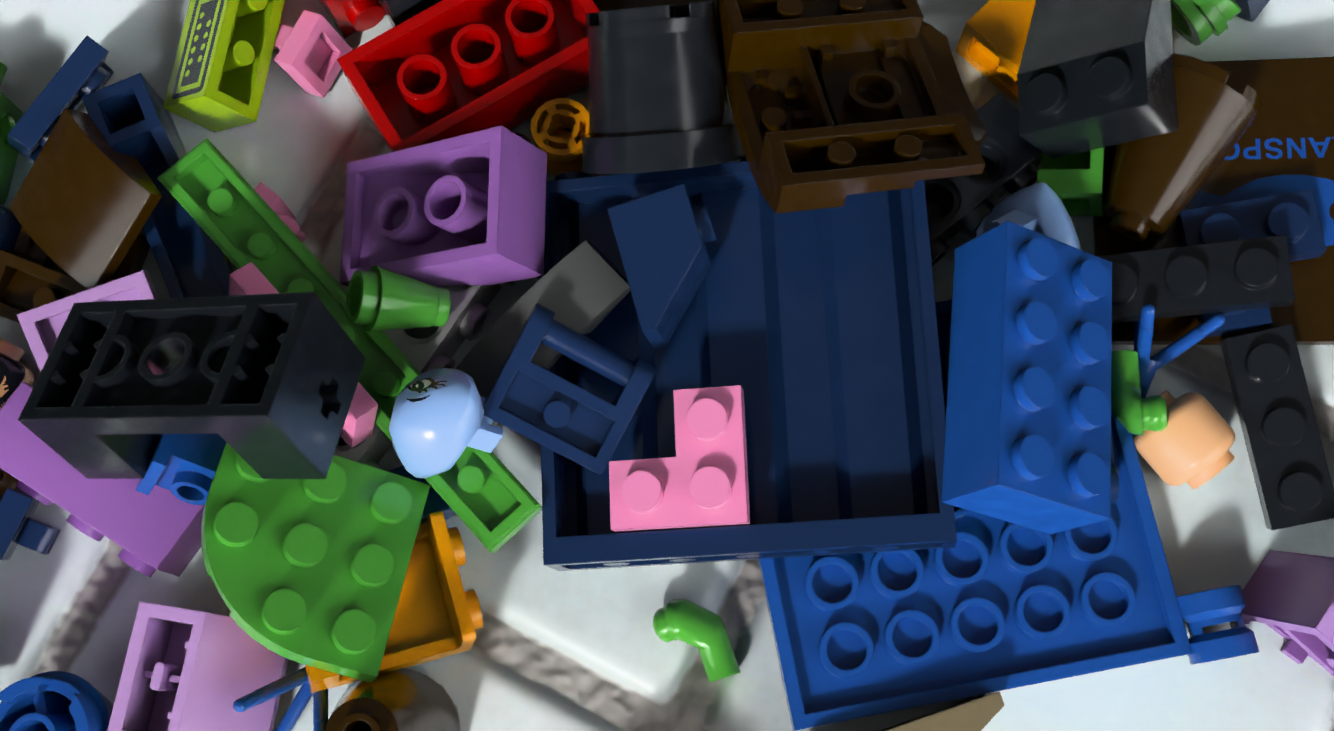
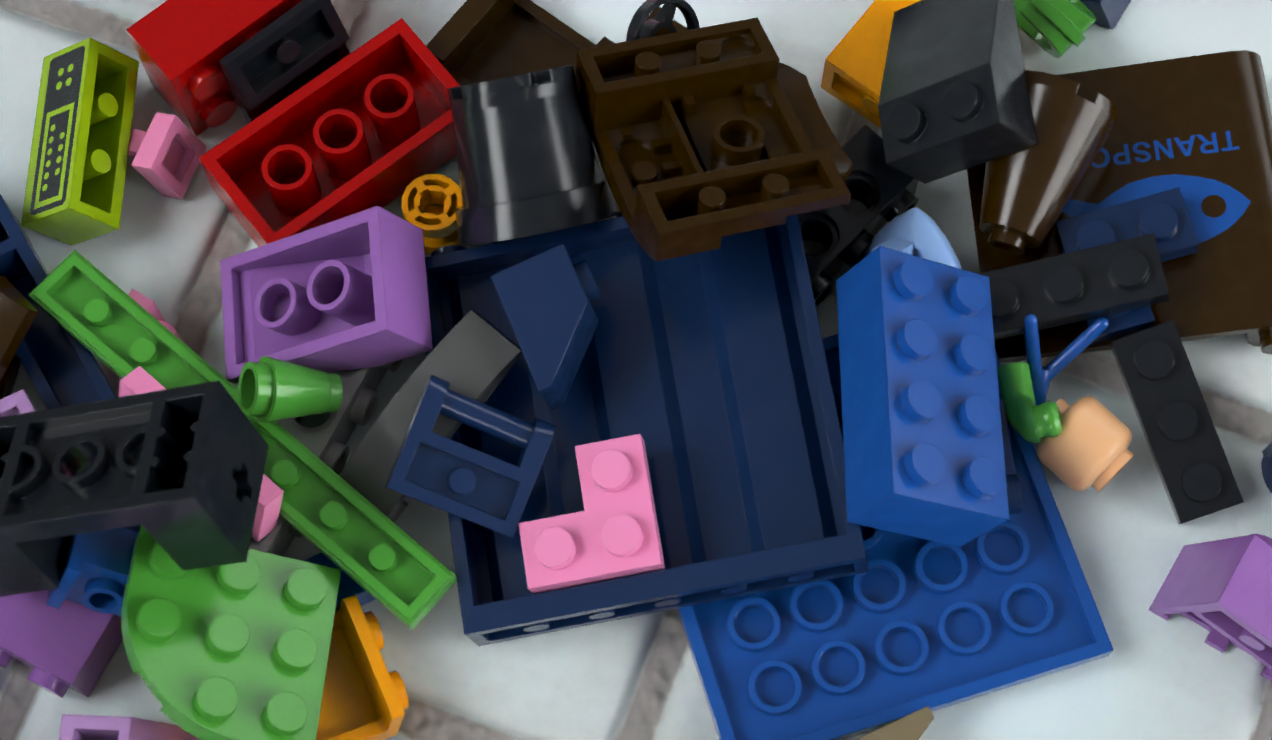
camera: 10 degrees left, 5 degrees down
(437, 420) = (346, 499): light blue piece -> none
(701, 629) = (627, 685): bright green arm -> none
(1077, 180) = (953, 203): bright green panel -> none
(1211, 609) = (1130, 608): blue wheel -> none

